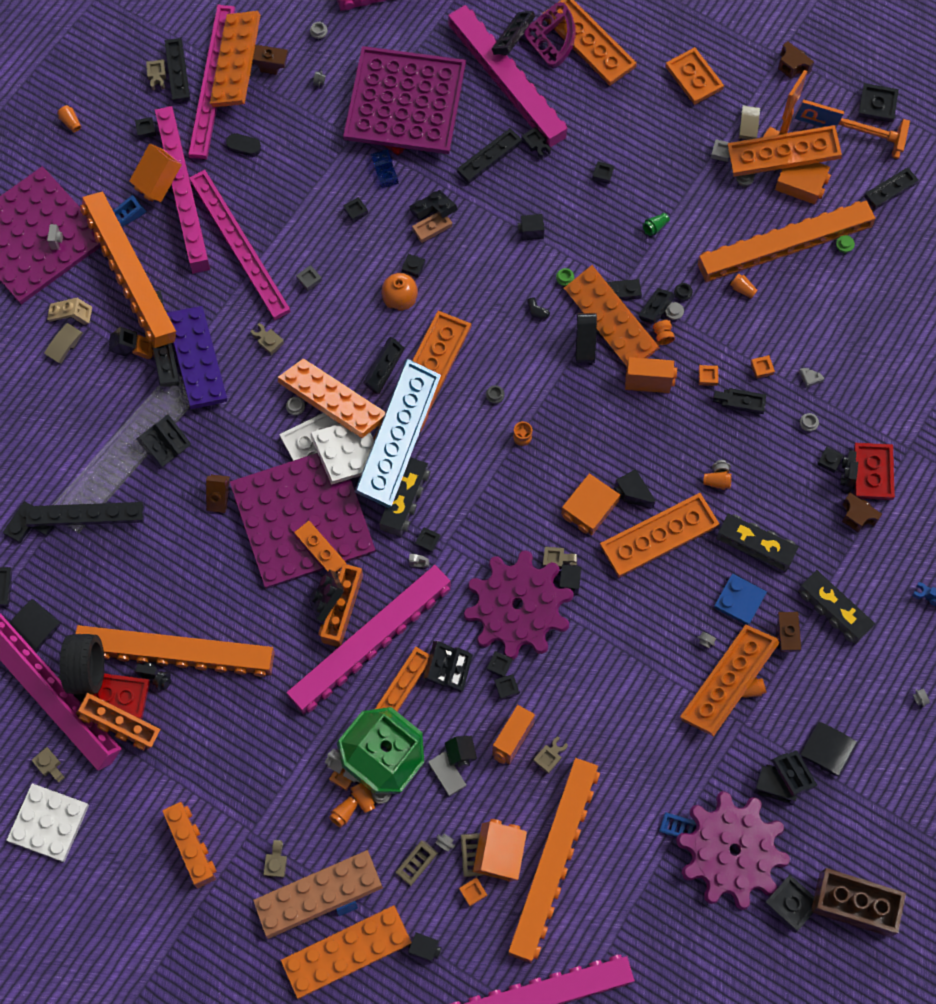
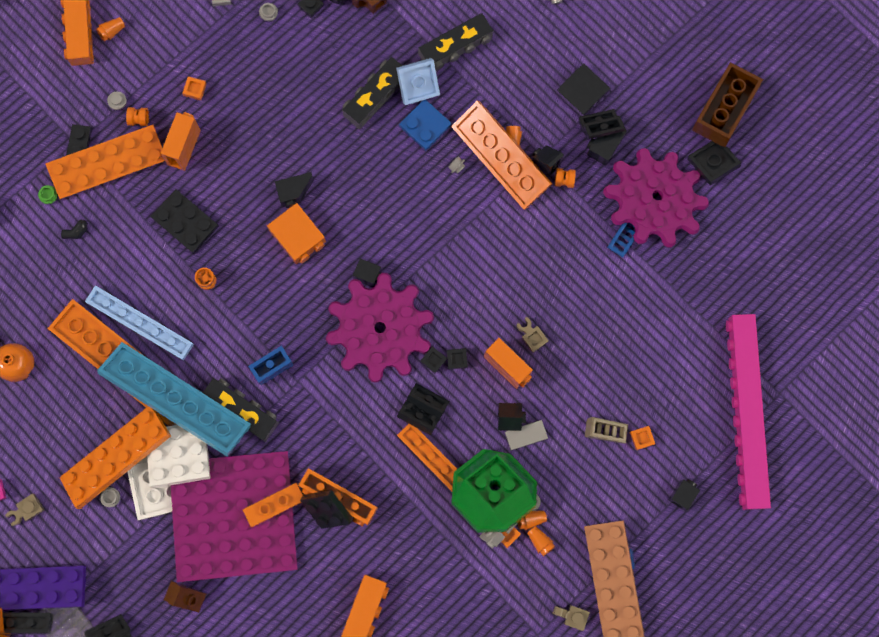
camera: 80 degrees left, 10 degrees up
(346, 952) = (671, 568): orange plate -> none
(369, 640) = (377, 477): dark pink brick -> none
(384, 365) = (92, 397): black plate -> none
(418, 561) = (310, 412): light grey tile -> none
(427, 540) = (291, 397): black plate -> none
(433, 853) = (608, 479): dark tan slope -> none
(445, 842) = (591, 452): light grey plate -> none
(453, 512) = (270, 365): none -> blue brick
(464, 388) = (139, 322): none -> light blue plate
(495, 394) = (155, 295): dark grey plate -> none
(500, 850) = (612, 403): orange brick -> none
(552, 862) = (630, 358): orange brick -> none
(557, 555) = (341, 279): dark tan plate -> none
(574, 401) = (184, 221): none -> black plate
(586, 337) = (124, 190): black piece -> none
(655, 224) = (17, 93): green cone -> none
(656, 306) = (107, 115): black plate -> none
(659, 535) = (344, 179): orange plate -> none
(683, 291) = (98, 86): black plate -> none
(719, 480) = (304, 109): orange cone -> none
(721, 466) = (292, 104): light grey plate -> none
(725, 750) = (569, 179): none -> orange wheel
(737, 727) = (547, 160): none -> black slope
(741, 400) = (229, 66): black hinge -> none
(762, 367) = (200, 36): orange plate -> none
(780, 578) = (418, 81): none -> light blue plate
(788, 632) = (470, 90): reddish brown brick -> none

